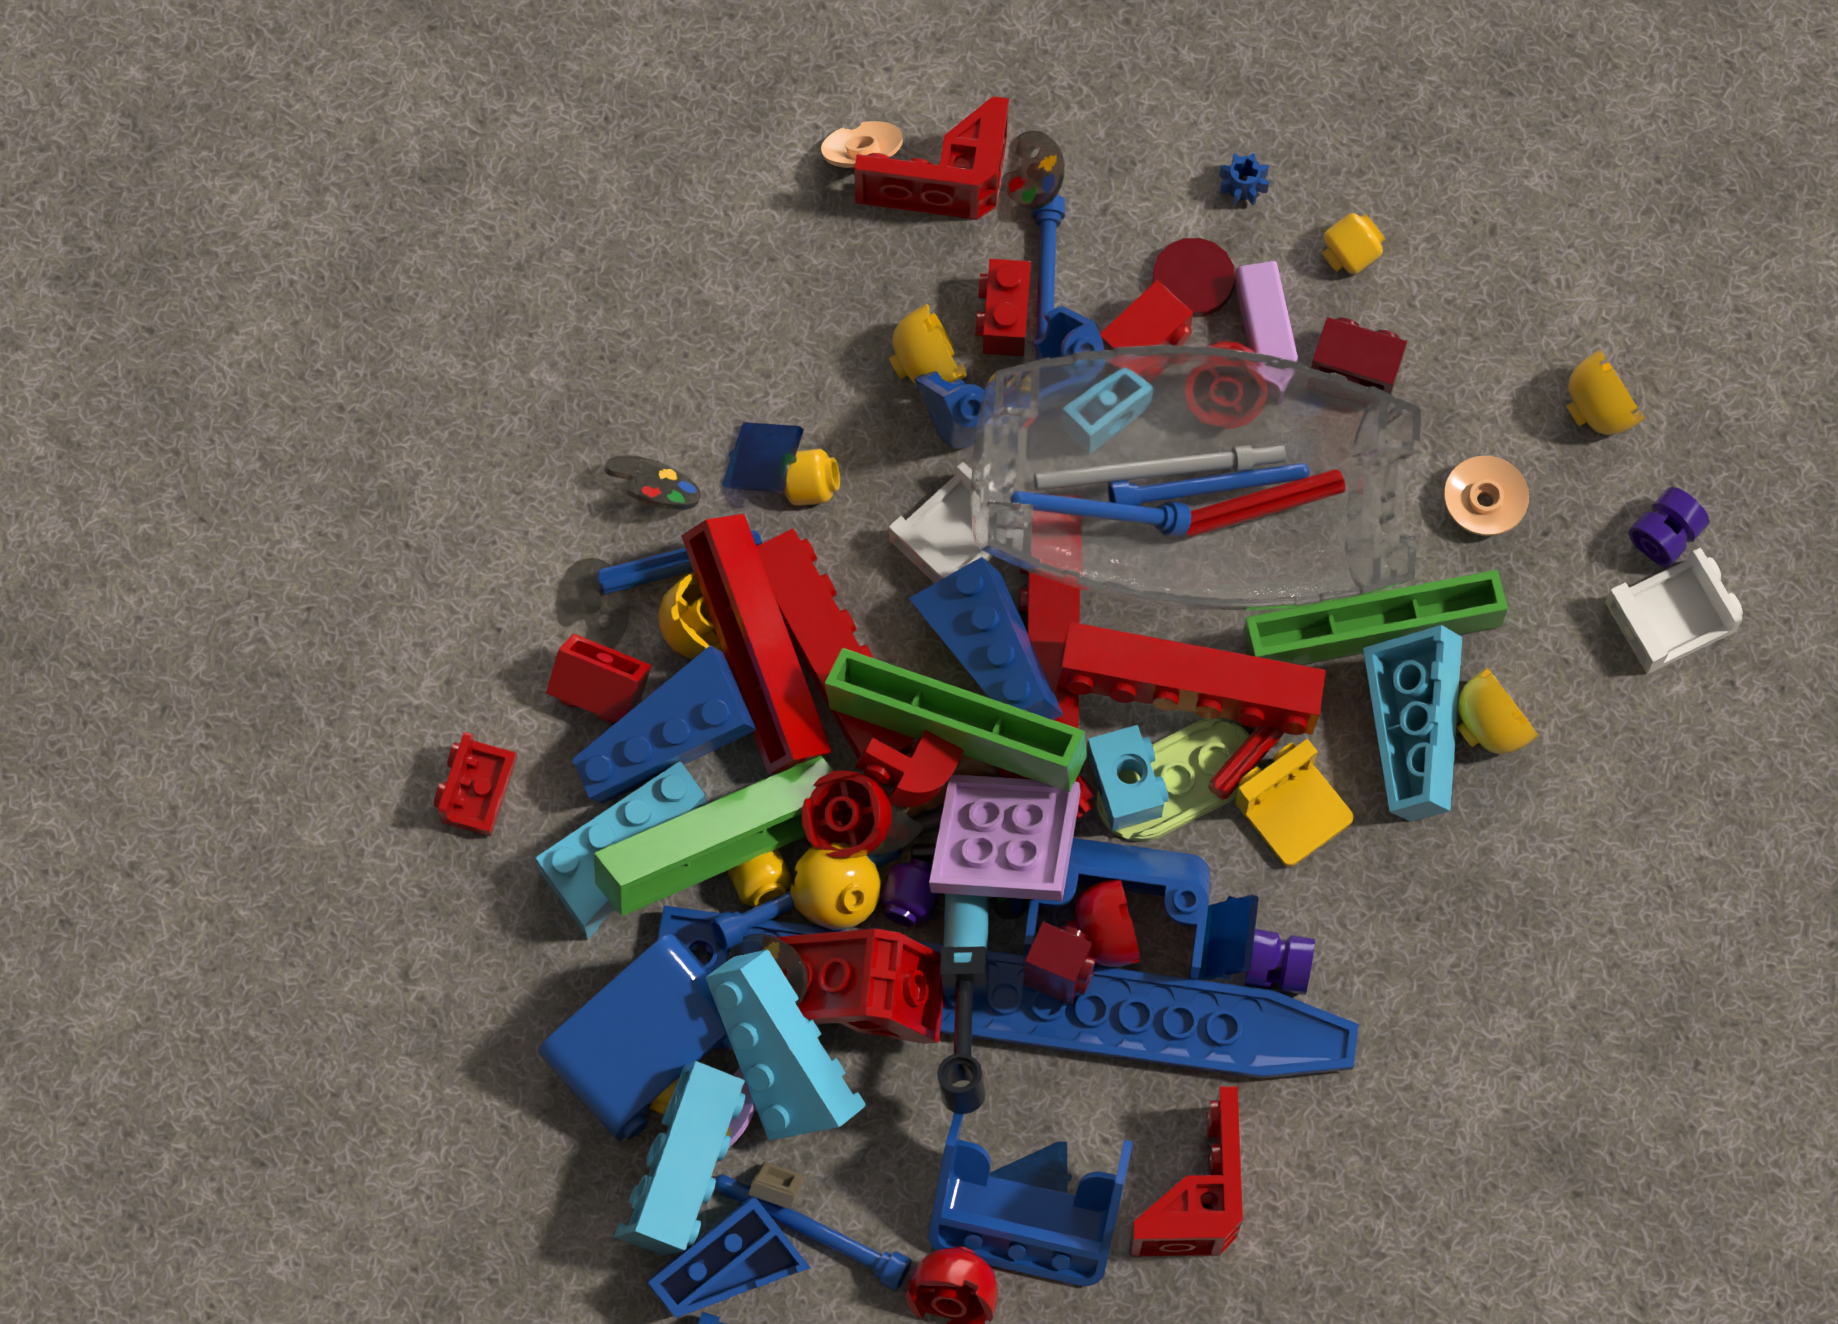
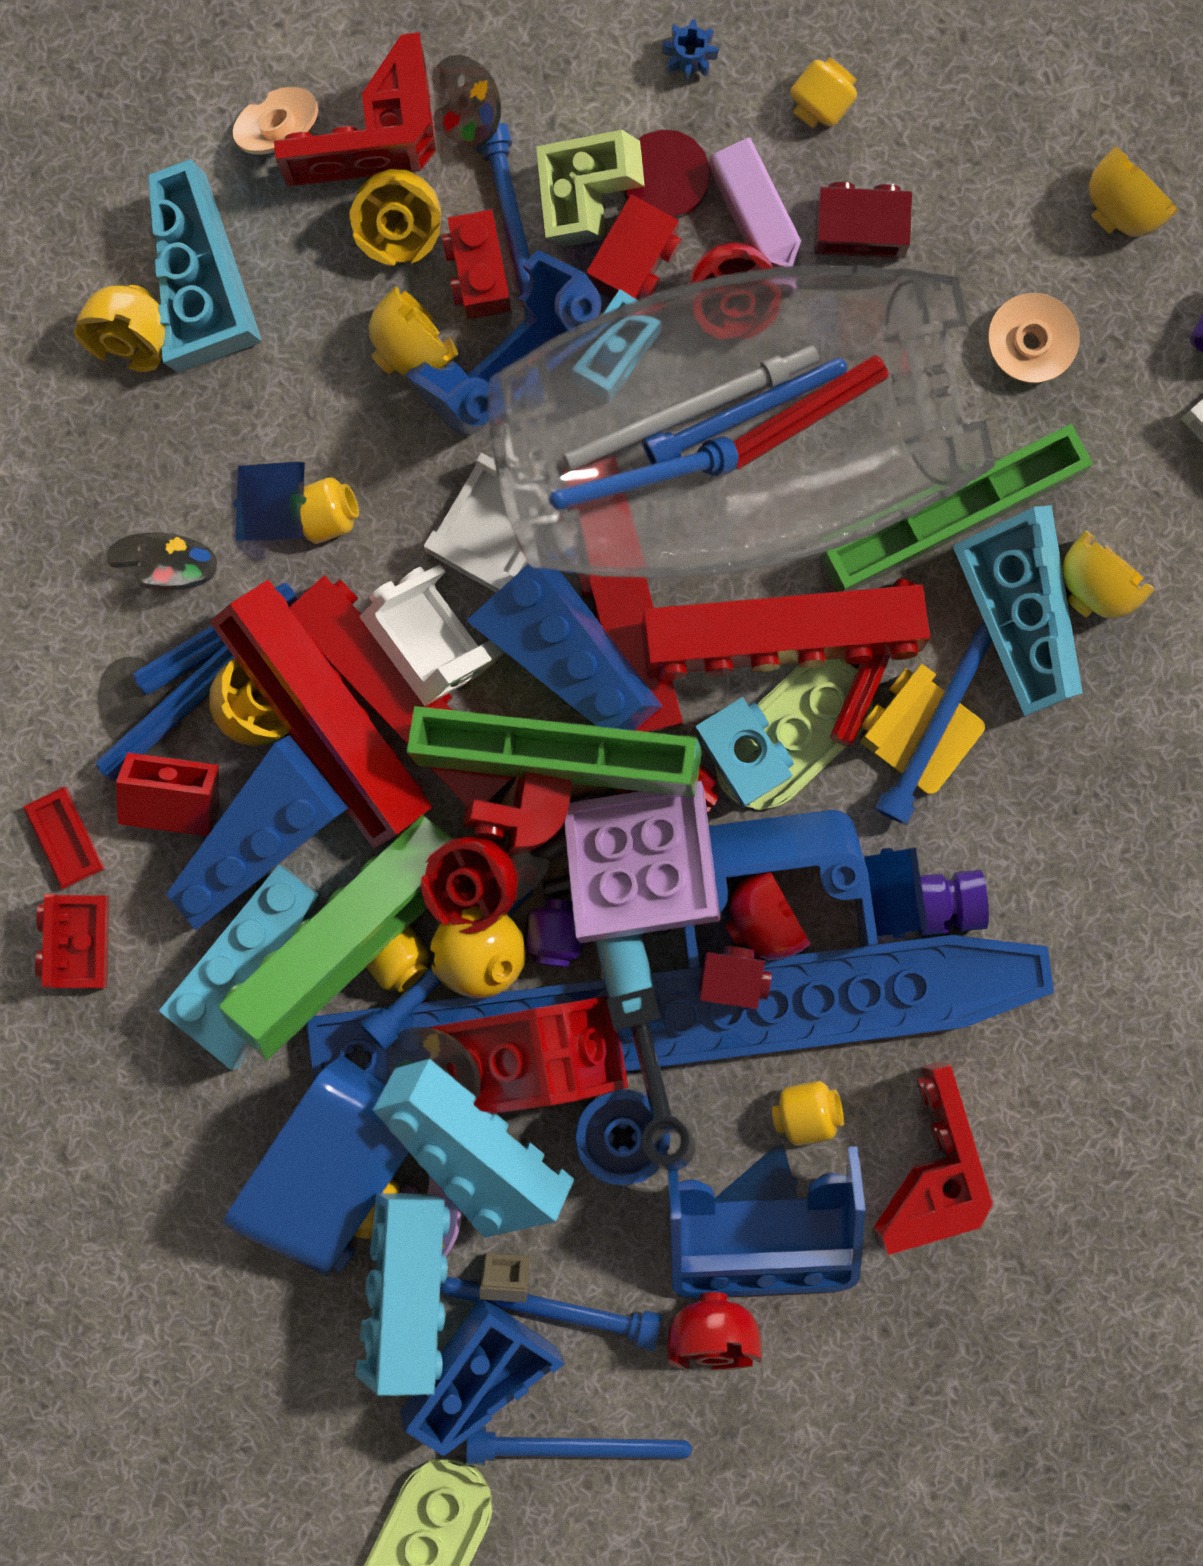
camera: 15 degrees left, 15 degrees up
(492, 697) = (64, 838): none -> red tile
(613, 615) = (165, 715): none -> blue axle
(678, 272) = (118, 322): none -> yellow cylinder
(755, 278) = (197, 274): none -> medium azure wedge
(868, 603) = (426, 636): none -> white panel
(903, 1105) = (594, 1137): none -> blue brick
(944, 248) = (395, 217): none -> yellow cylinder
(1097, 1114) = (808, 1113): none -> yellow head
(1113, 255) = (576, 176): none -> yellowish green brick
(1254, 861) = (898, 800): none -> blue piece

